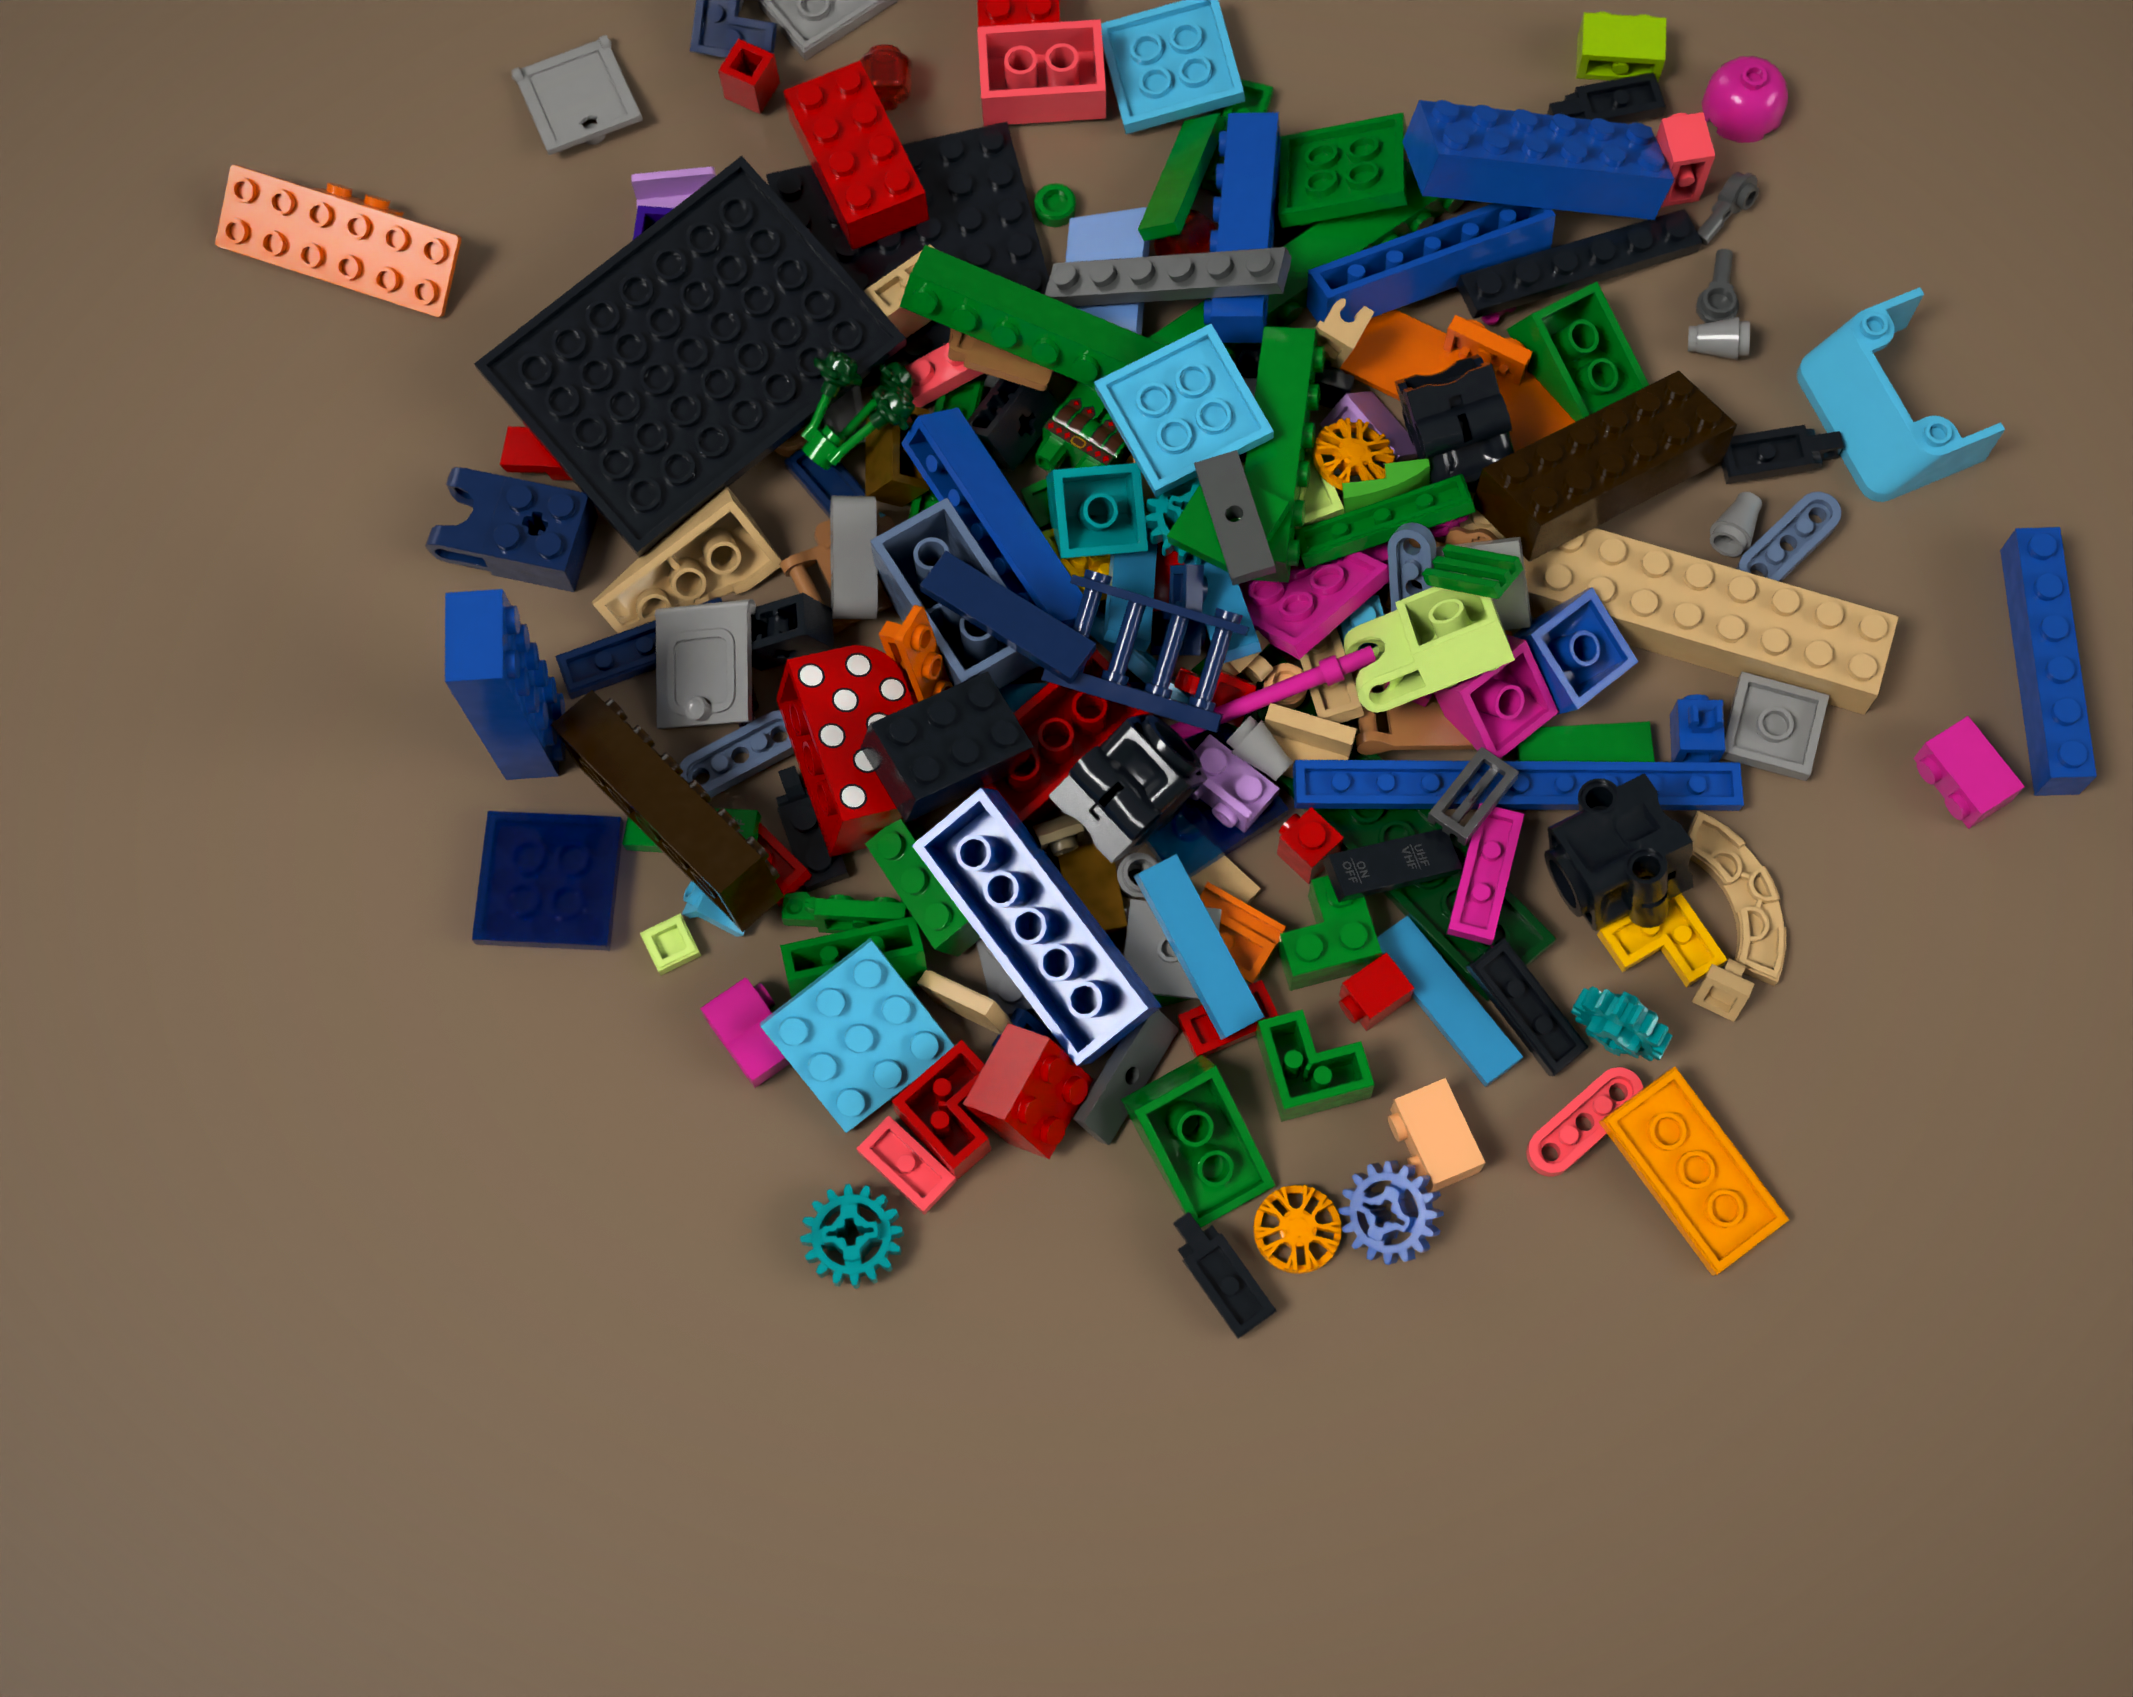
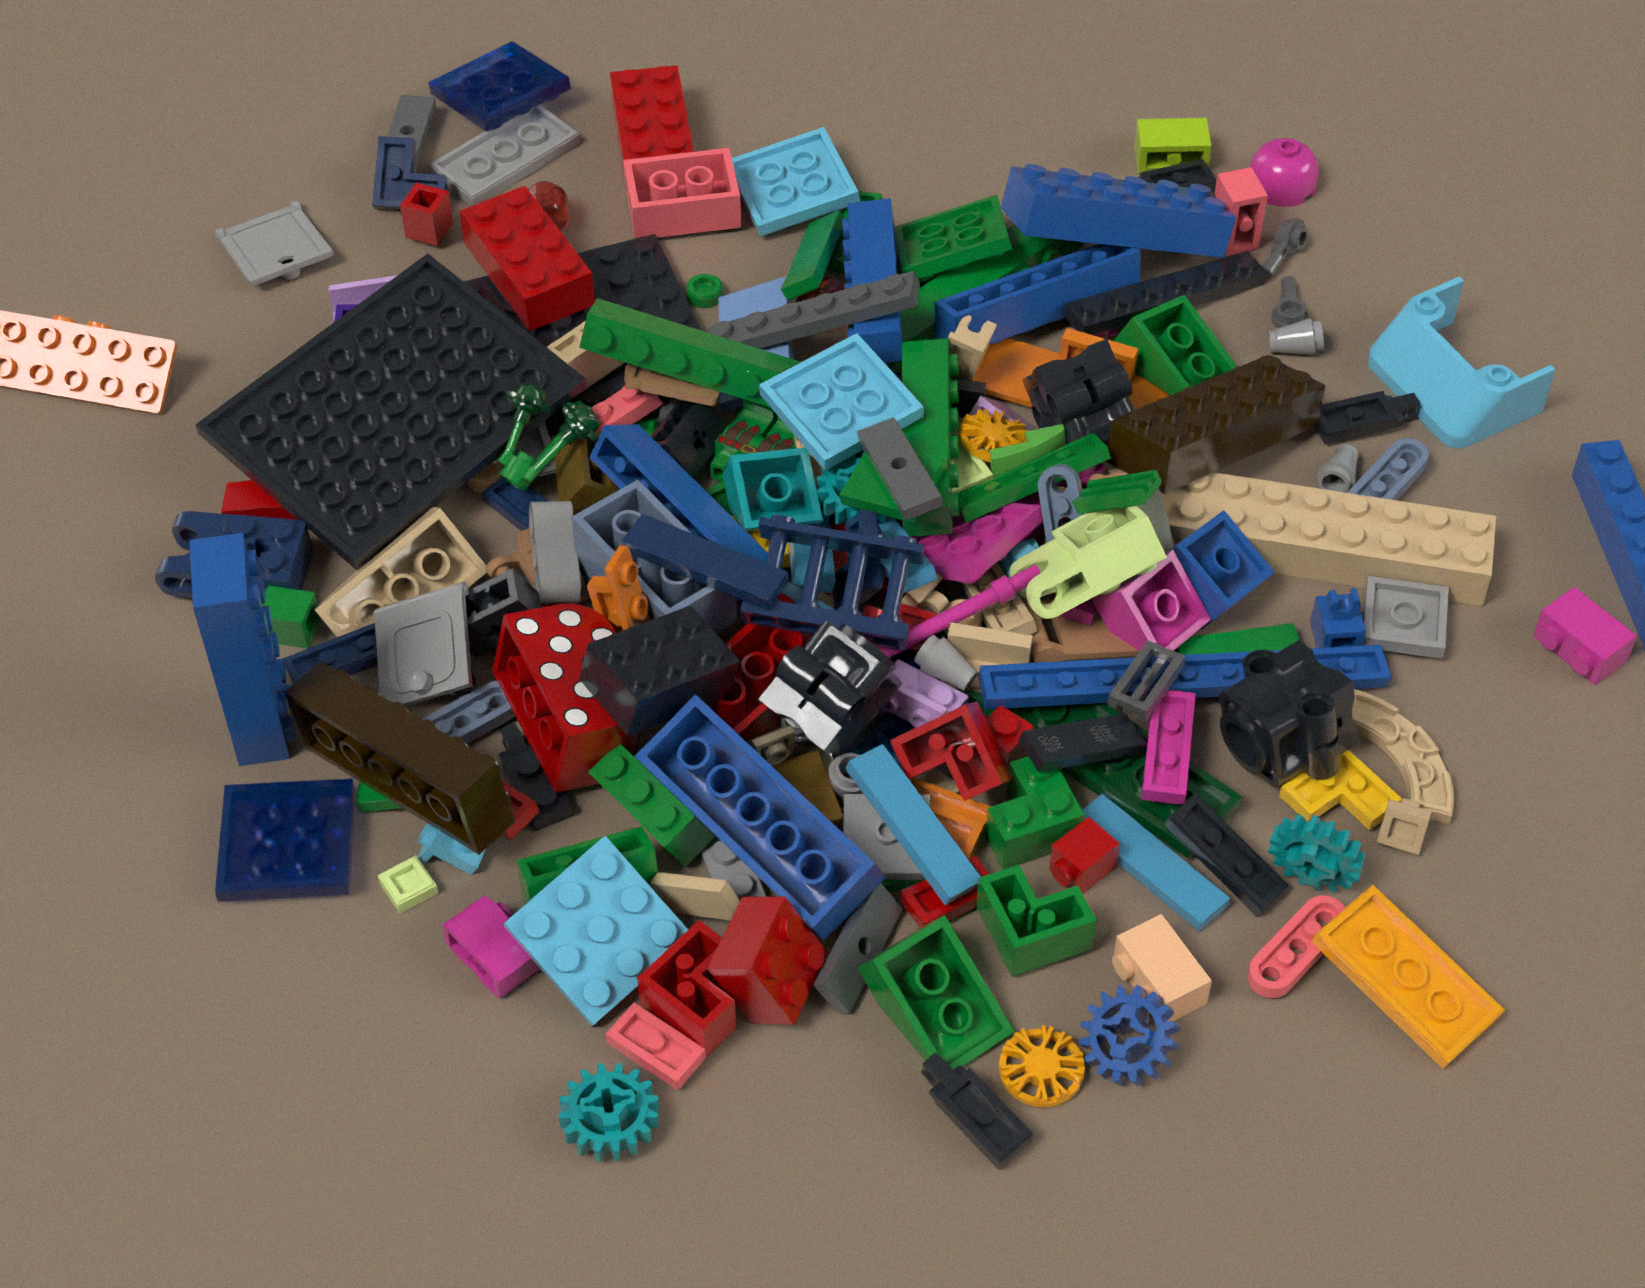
camera: 10 degrees left, 20 degrees down
(563, 605) = (292, 615): none -> green brick
(839, 911) = (543, 837): green hinge -> none
(1261, 858) = (962, 742): none -> red brick

